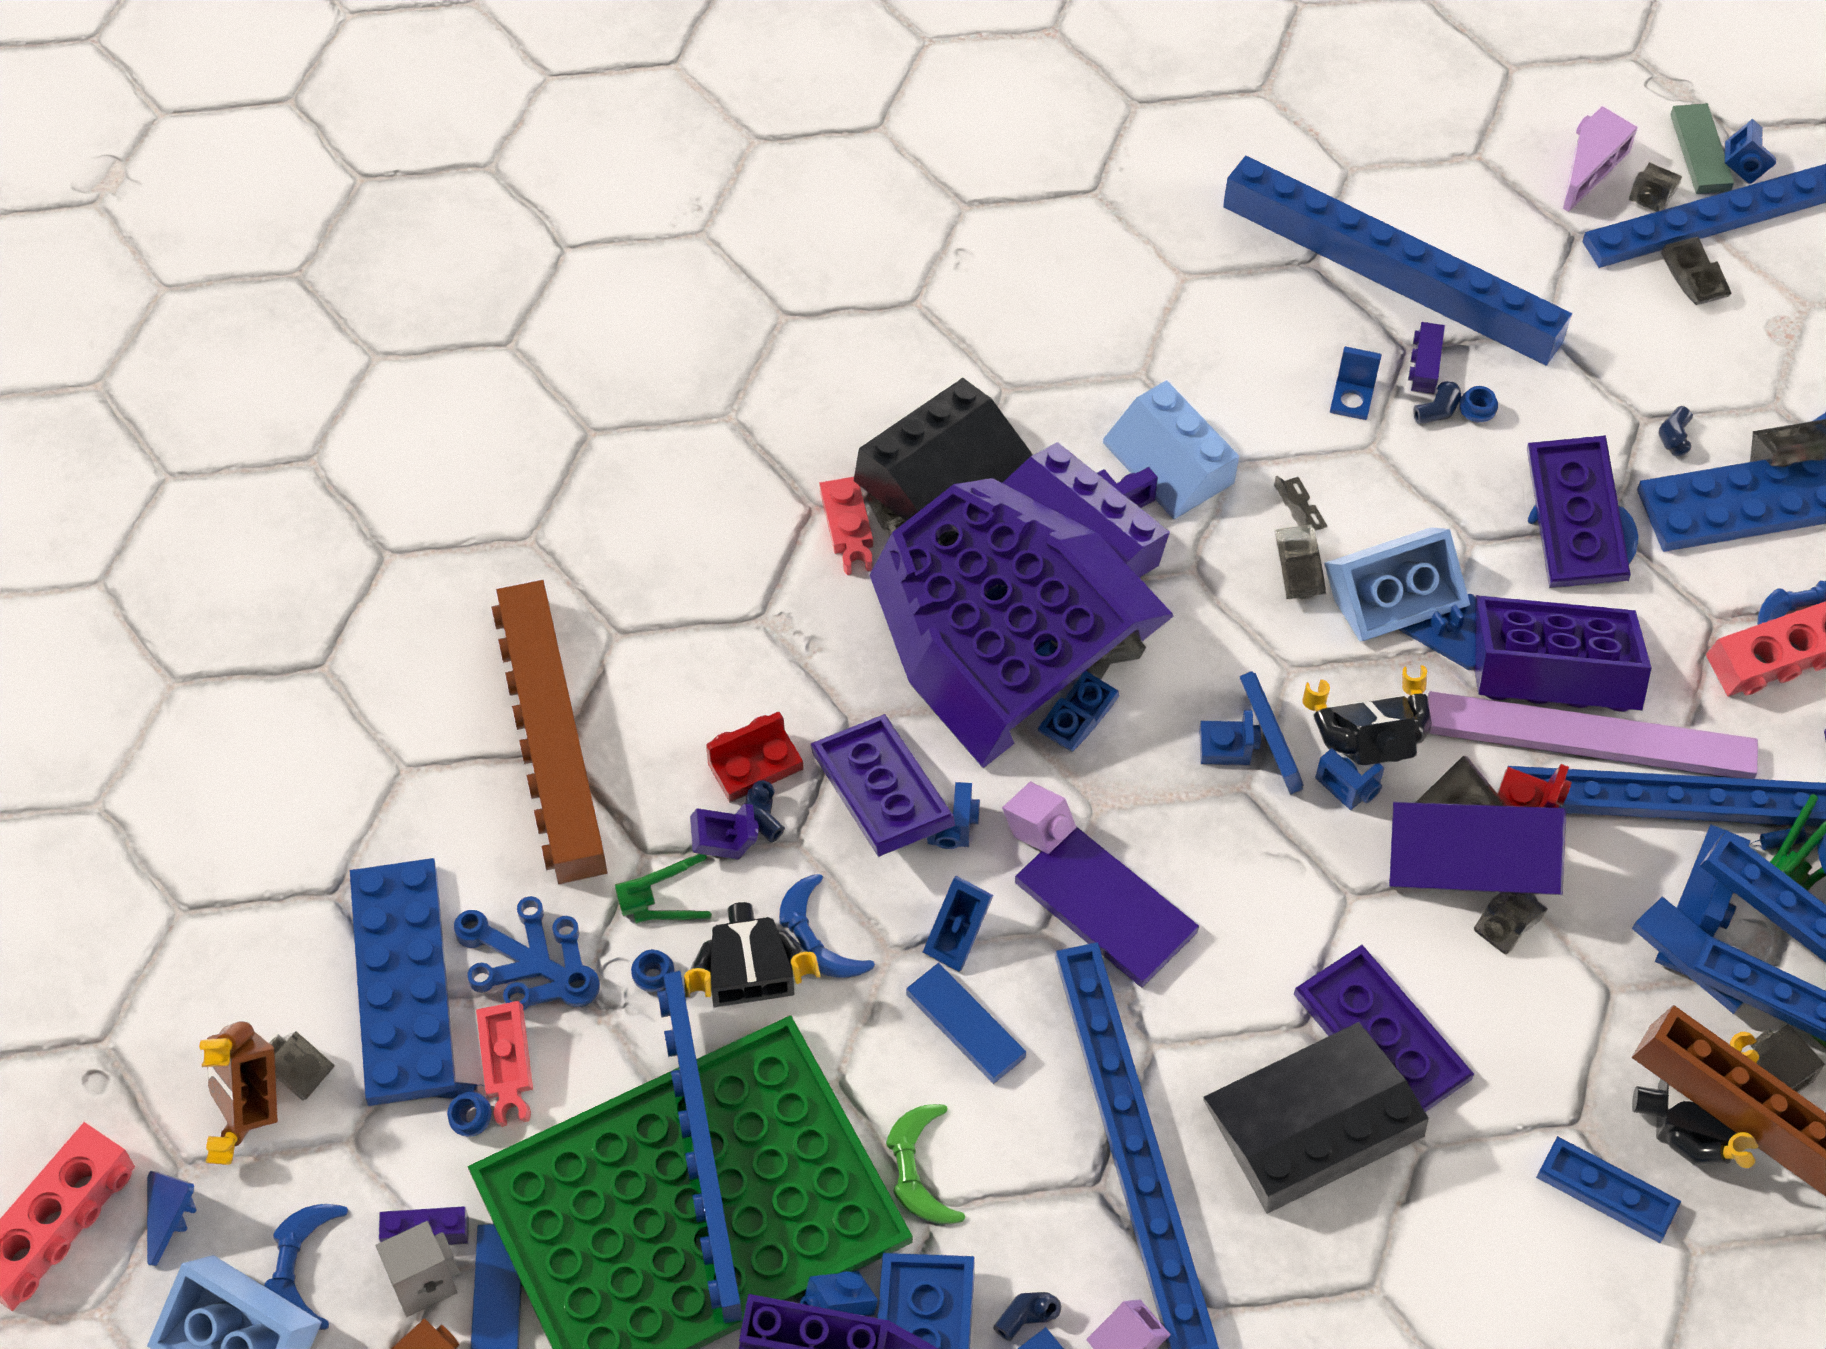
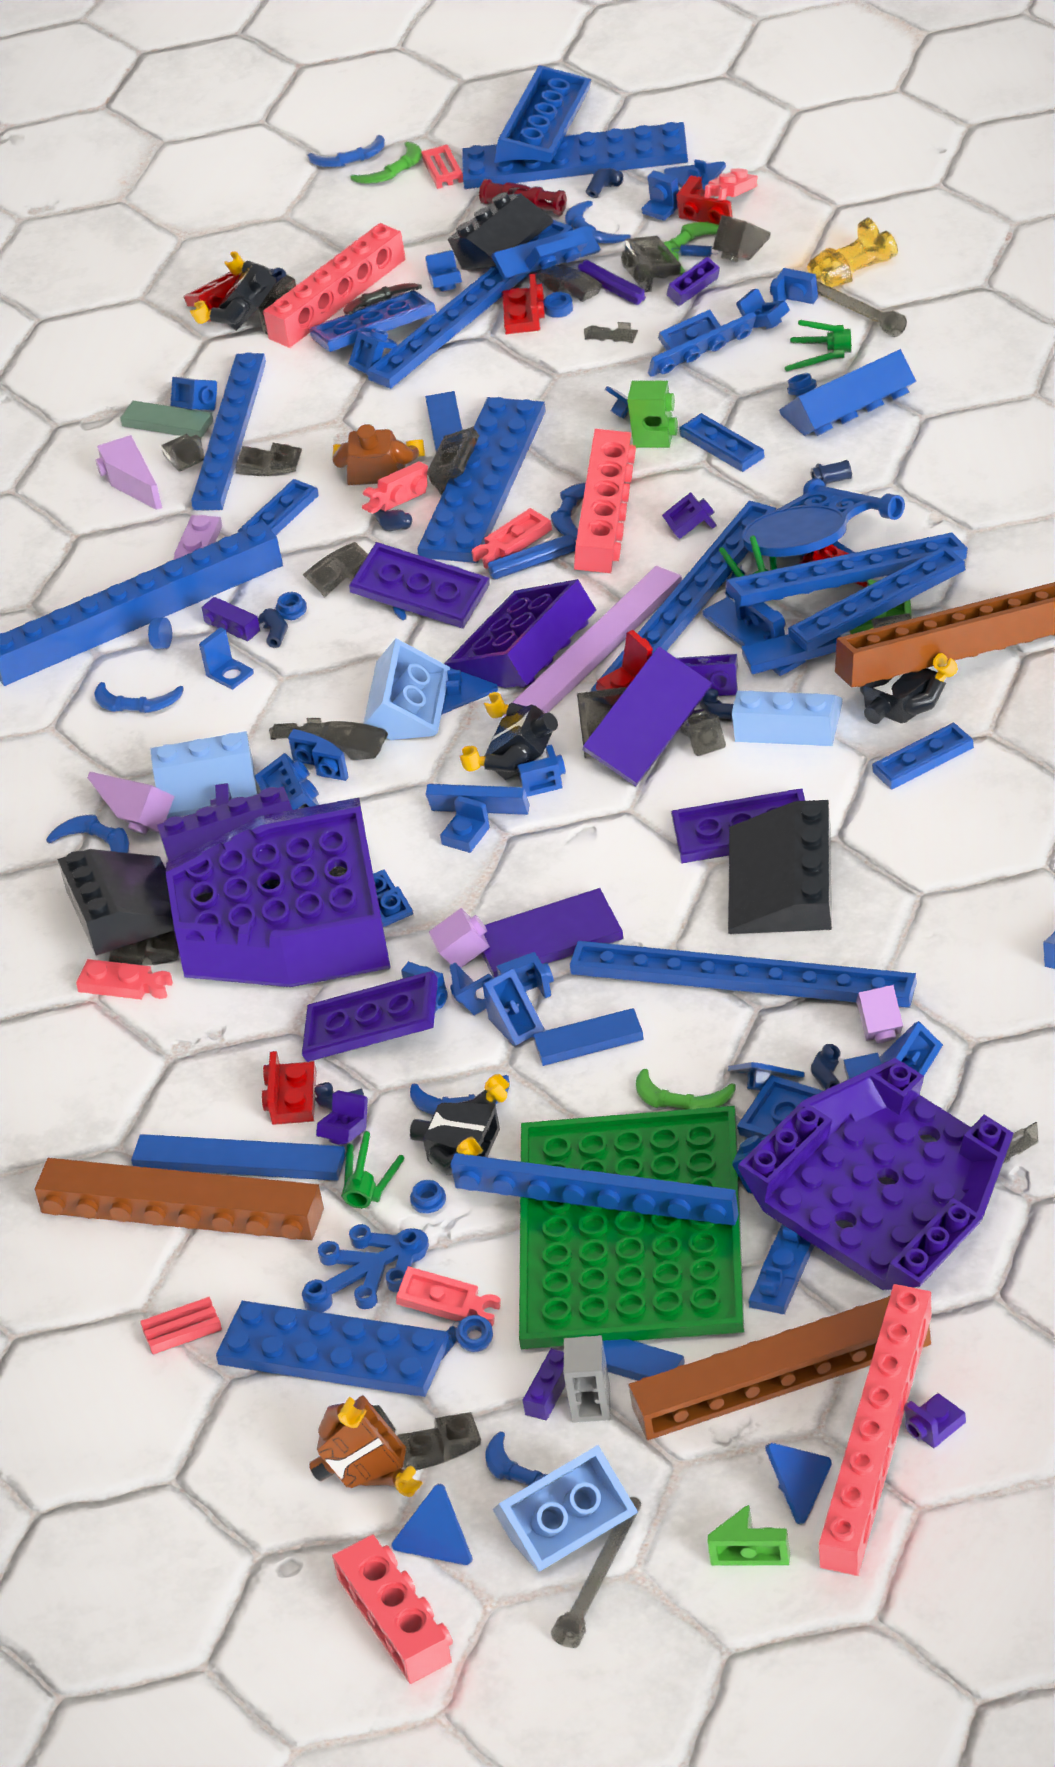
camera: 55 degrees left, 15 degrees down
(304, 1151) = (448, 1440): none -> clear smoke slope
(364, 795) = (179, 1321): none -> coral tile
(641, 757) = (239, 1157): none -> blue tile
(974, 857) = (465, 989): none -> blue bracket
(981, 1240) = (760, 1073): none -> blue piece
(1024, 909) = (530, 973): none -> blue bracket
(1054, 381) = (89, 824): none -> blue piece
(1095, 402) = (133, 801): none -> lavender slope
(1200, 537) = (294, 779): none -> blue bracket
(1244, 314) = (120, 703): none -> blue piece
(1258, 541) = (317, 751): none -> blue slope
(1365, 304) = (160, 633): none -> blue tile
(1533, 267) = (199, 532): none -> lavender hinge
(1559, 417) = (335, 568): none -> clear smoke slope
(1560, 913) = (712, 704): none -> dark blue arm
(1585, 998) = (786, 718): none -> light blue slope
(1606, 876) = (717, 669): none -> dark purple bracket
(1623, 321) = (284, 506): none -> blue tile
(1696, 600) = (532, 556): none -> blue axle
(1711, 414) = (397, 488): none -> coral plate
(1714, 567) = (512, 537): none -> coral plate
(1754, 372) = (374, 454): none -> dark orange torso

